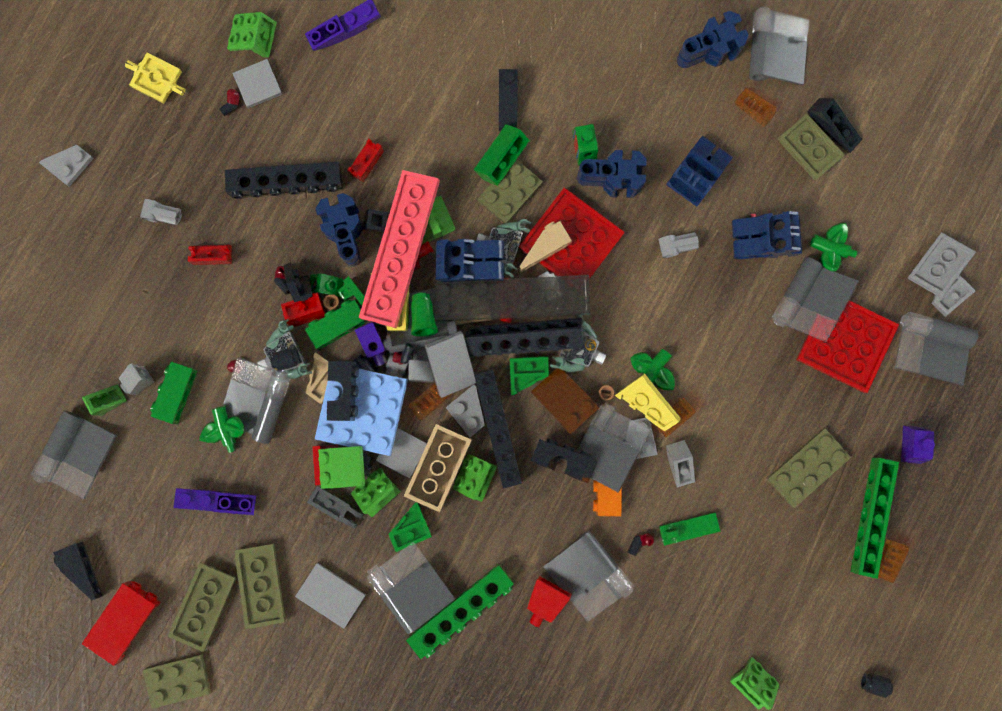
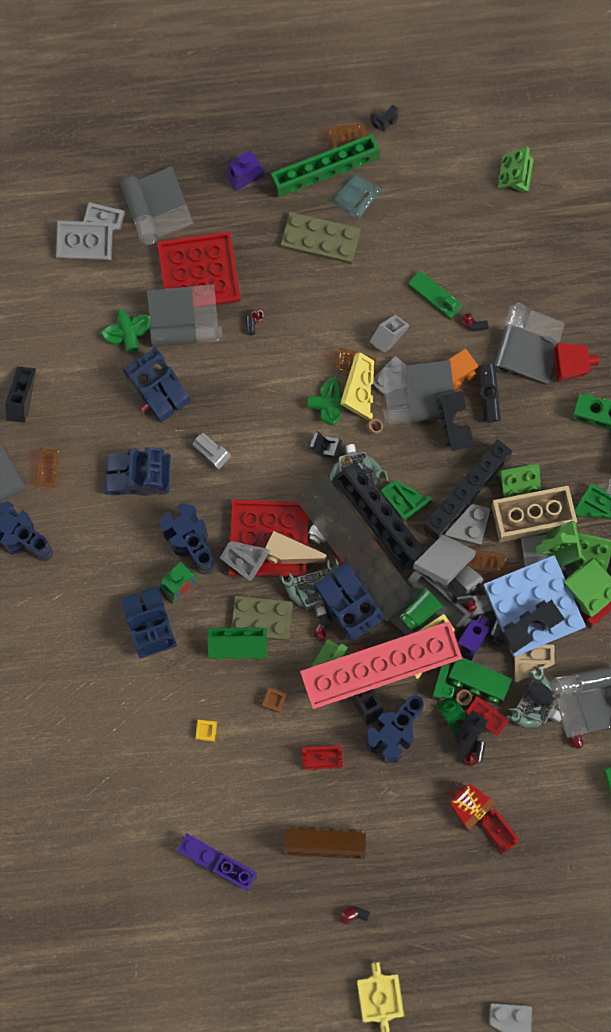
camera: 120 degrees left, 10 degrees down
(155, 211) = (497, 907): light grey piece -> none
(236, 177) = (403, 841): black brick -> none
(246, 246) = (469, 804): none -> torso
(253, 33) = (280, 941): bright green bracket -> none
(257, 83) = (320, 903): light grey tile -> none
(296, 112) = (325, 843): none -> reddish brown slope
(394, 469) = (562, 543): none -> bright green bracket
(436, 154) = (274, 700): none -> dark orange plate
(451, 88) = (206, 730): none -> yellow tile
(466, 227) = (322, 625): none -> arm
(508, 97) = (184, 673): black slope -> none
(564, 400) = (406, 453): reddish brown slope -> none
(566, 204) = (244, 558): none -> light grey wing
(575, 97) = (148, 622): none -> dark blue connector
(579, 515) = (488, 381): none -> black piece
(618, 339) = (325, 445): none -> black bracket
(772, 357) = (252, 319): none -> arm
(810, 147) = (53, 401): olive plate -> none
(832, 526) = (352, 194): none -> clear light blue plate
(876, 685) = (450, 88): black brick -> none
(883, 607) = (389, 118): none -> black bracket

